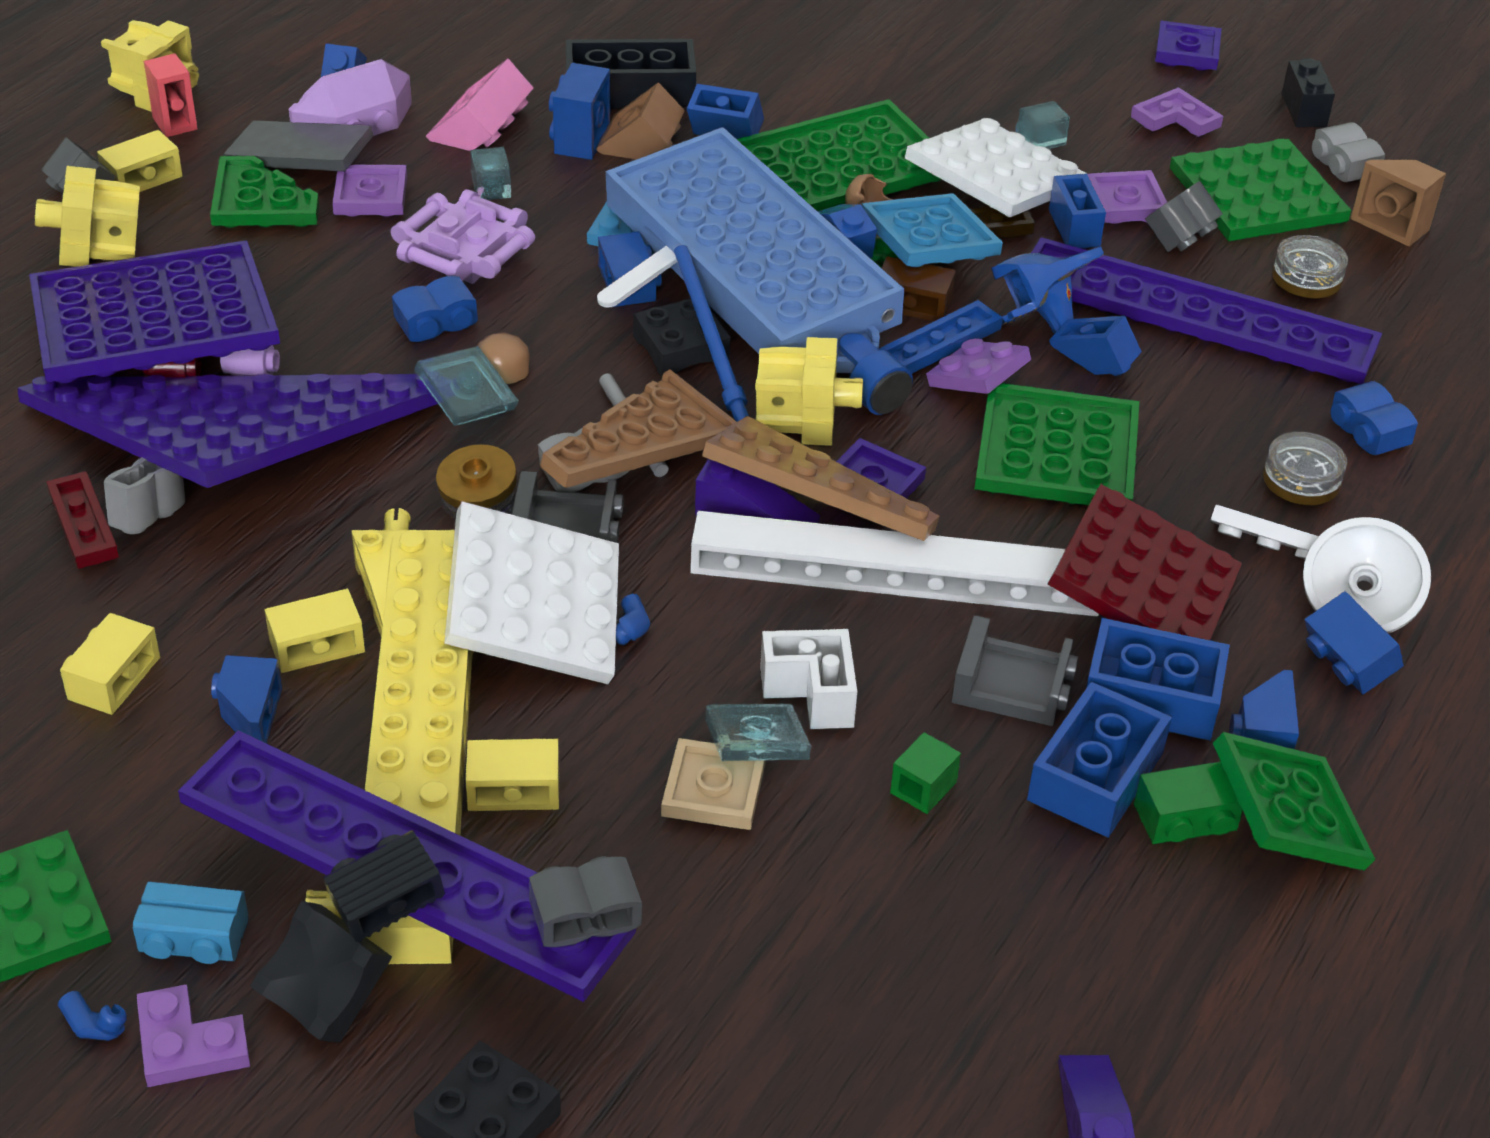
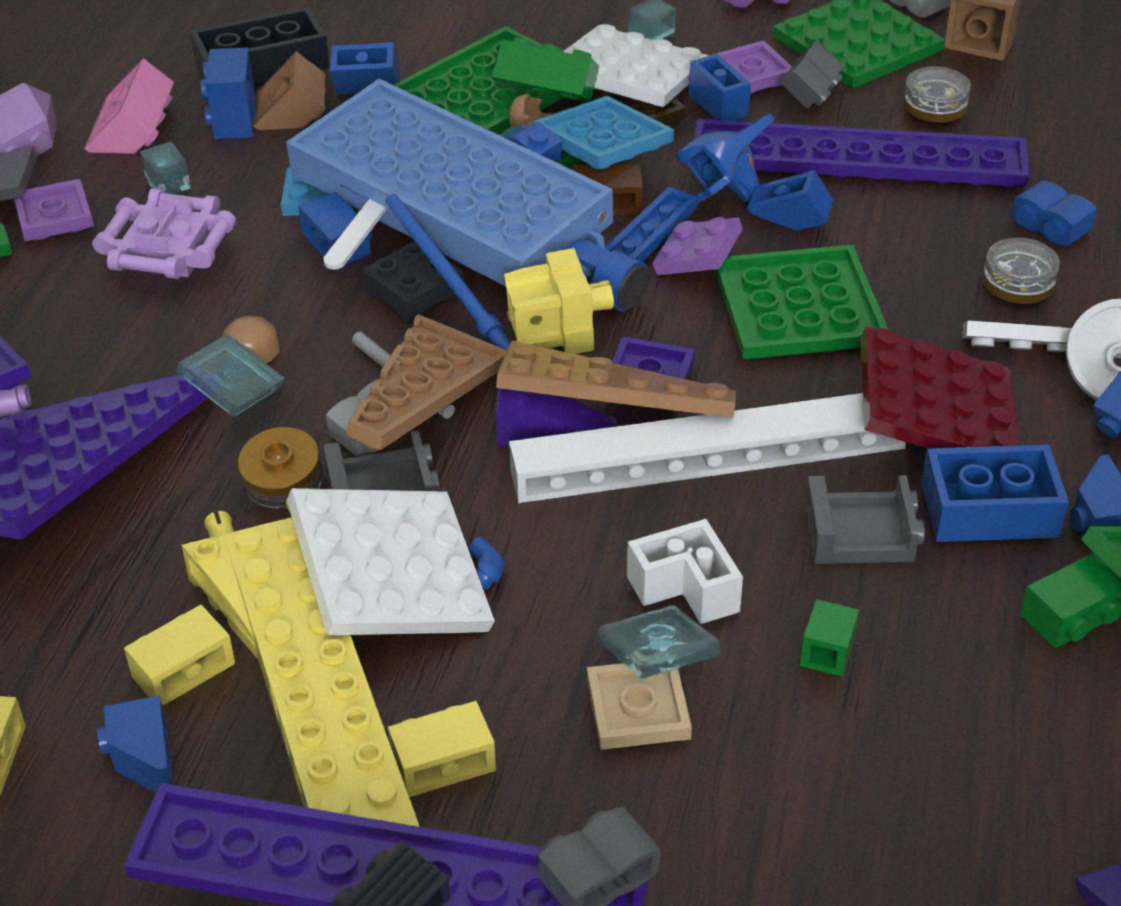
camera: 15 degrees left, 0 degrees up
(435, 308) = (165, 308): blue brick -> none
(901, 153) = (546, 70): none -> green brick
(1097, 759) = (982, 582): blue brick -> none

